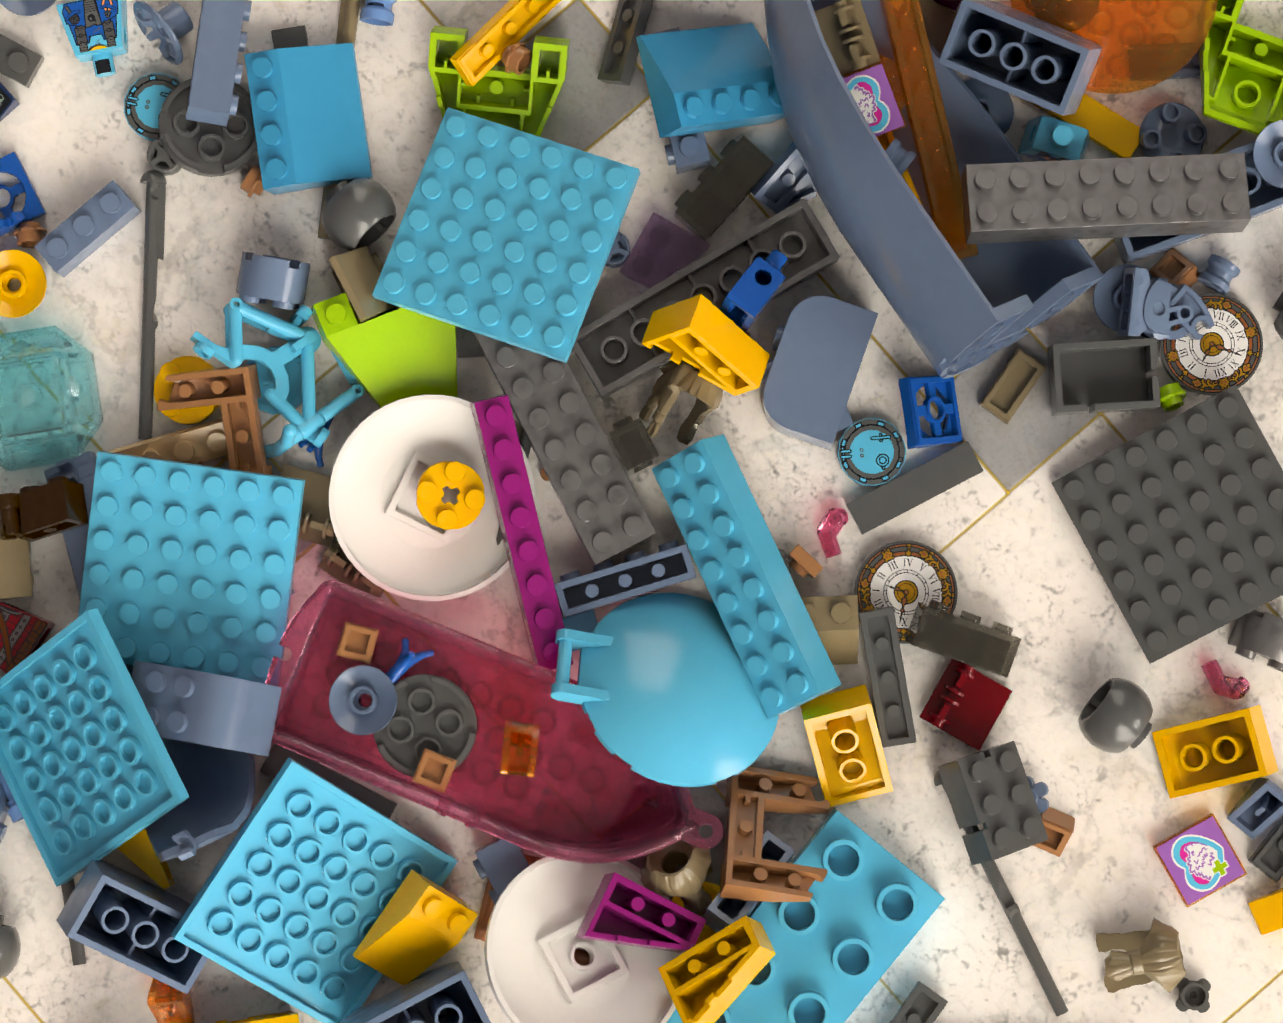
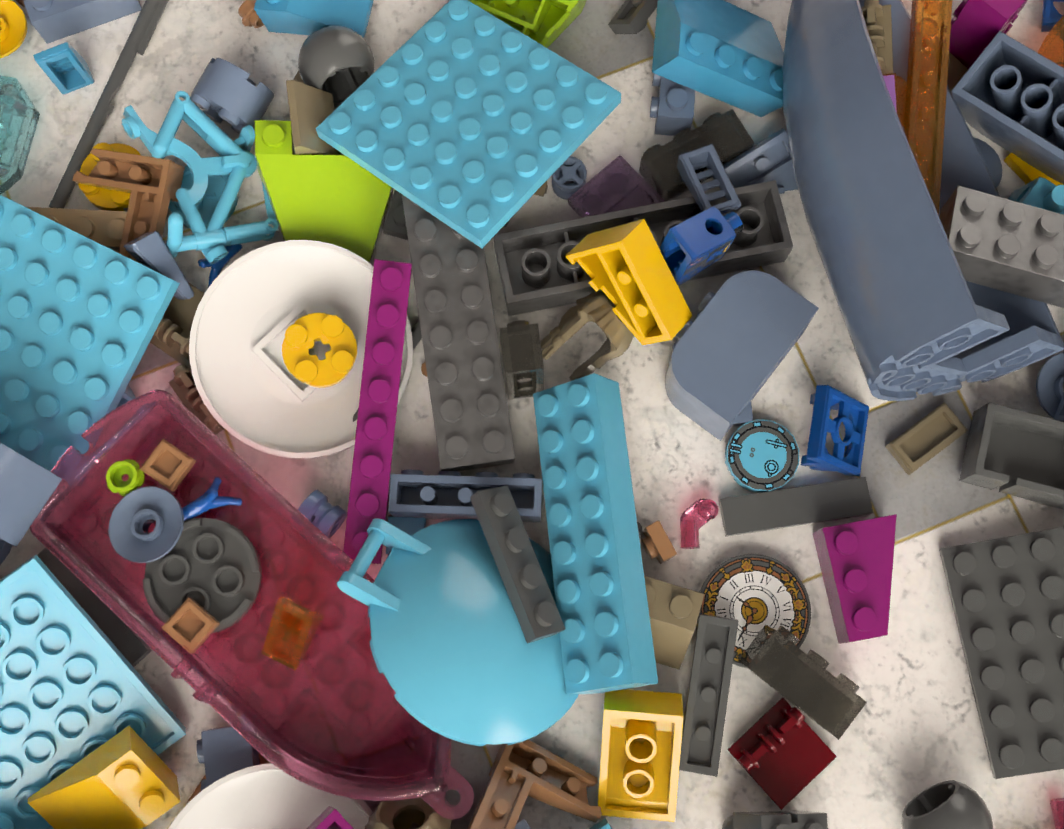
camera: 15 degrees right, 10 degrees down
(104, 303) = (65, 67): none -> dark azure slope
(270, 460) = (153, 253): none -> sand blue slope
(316, 664) = (115, 477): none -> lime plate
(503, 636) = (323, 514): none -> medium blue wheel
(691, 625) = (517, 563): none -> dark grey plate
(730, 200) = (707, 157): none -> sand blue slope
(985, 531) = (858, 575): none -> magenta wedge

